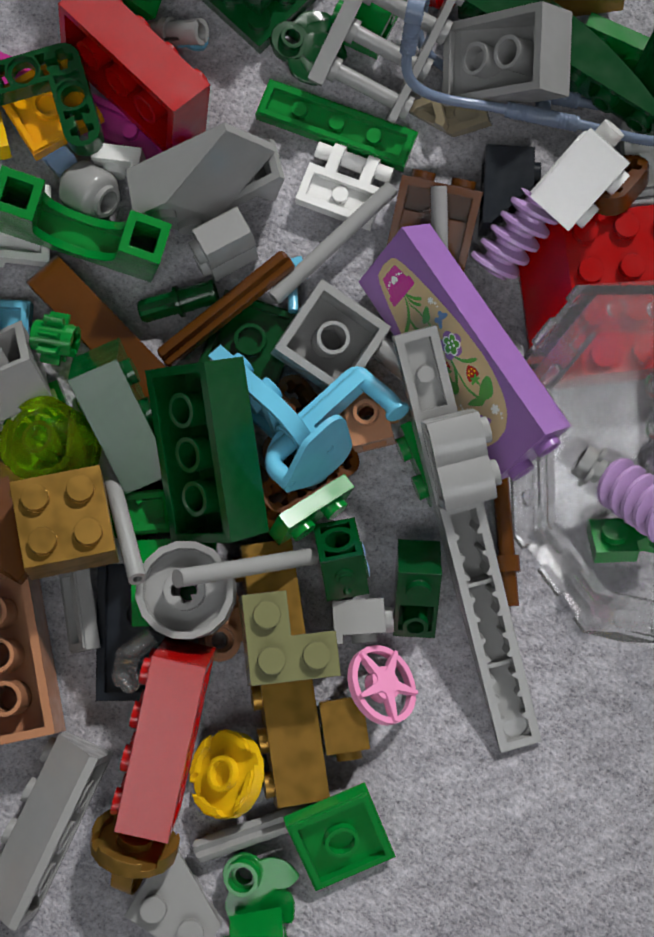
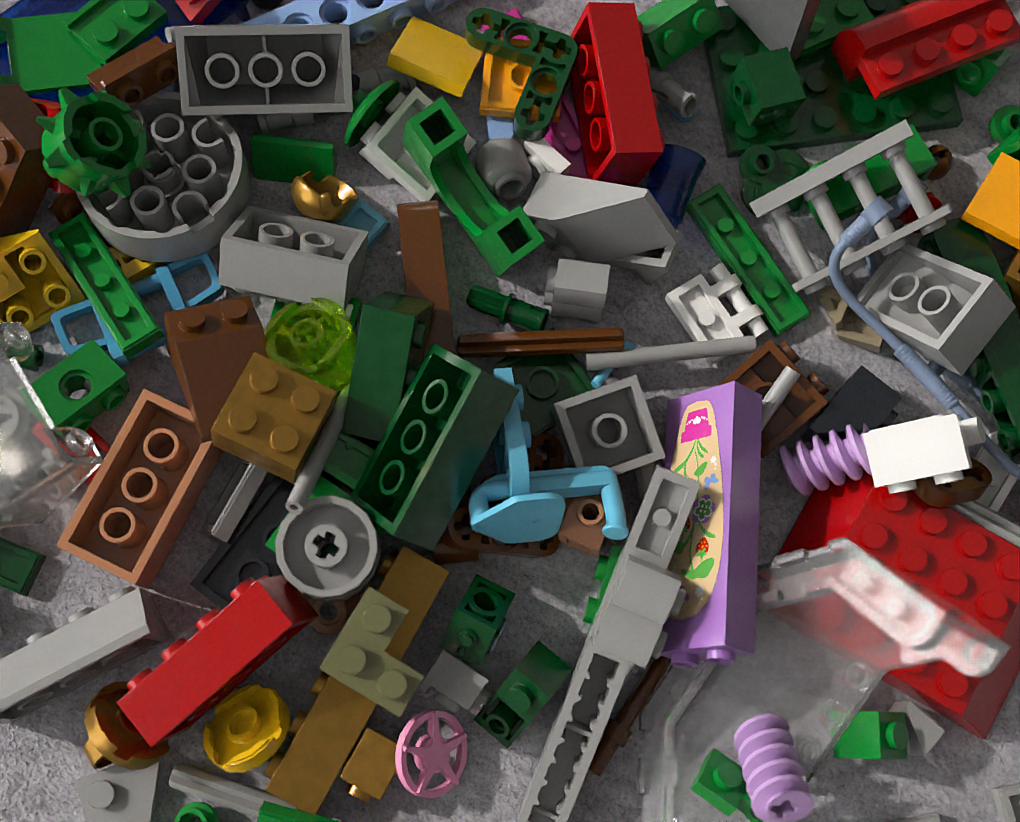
camera: 30 degrees right, 5 degrees down
(55, 338) = (383, 265): green gear -> none
(127, 659) = (242, 568): clear arm -> none
(233, 100) = (674, 179): none -> clear blue plant
(243, 567) = (388, 564): light grey bar -> none
(301, 517) = (467, 560): plate -> none
(590, 465) = (748, 702): light grey plate -> none

